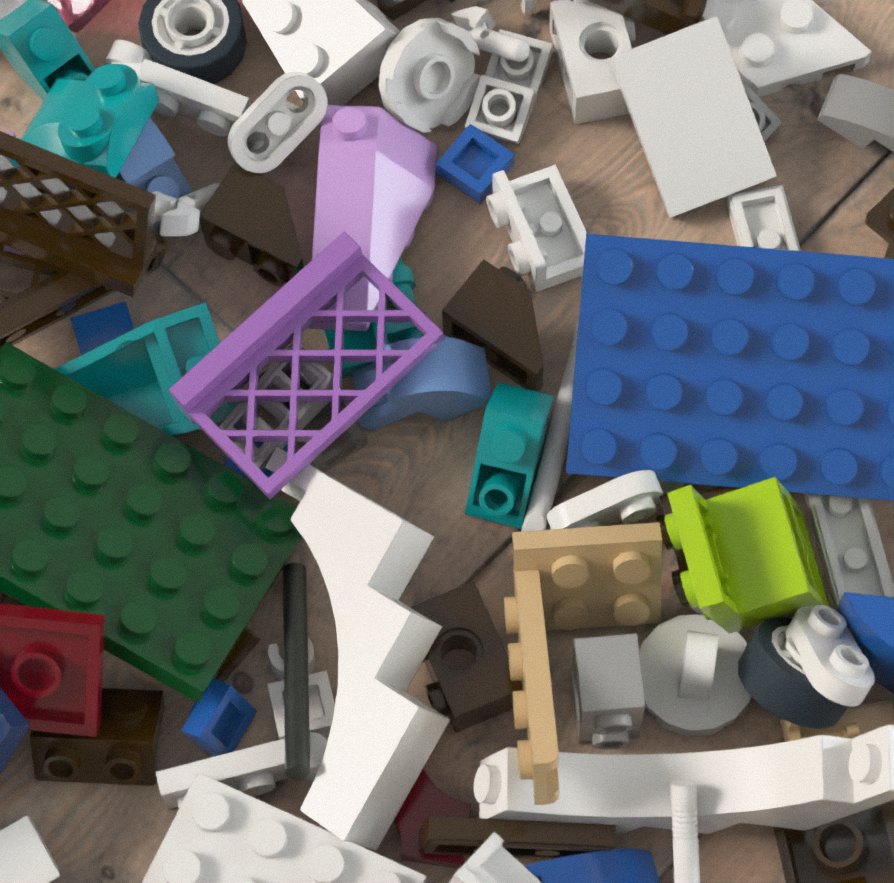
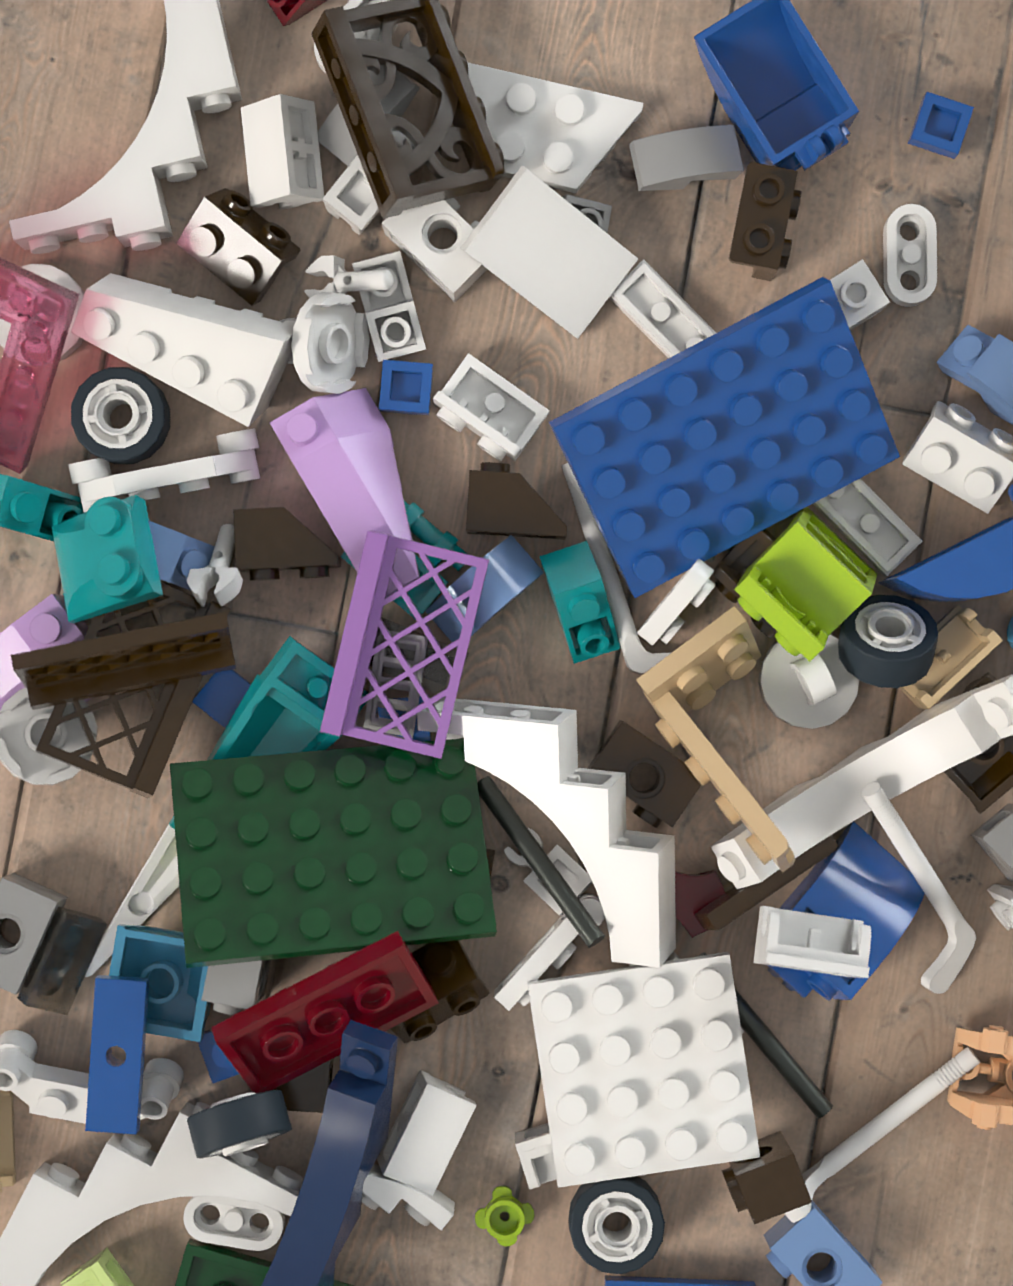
camera: 35 degrees left, 20 degrees up
(219, 719) = (511, 928): blue plate -> none
(281, 126) = (249, 458): white plate -> none
(607, 690) = (766, 741): light grey brick -> none
(830, 655) = (908, 623): white plate -> none

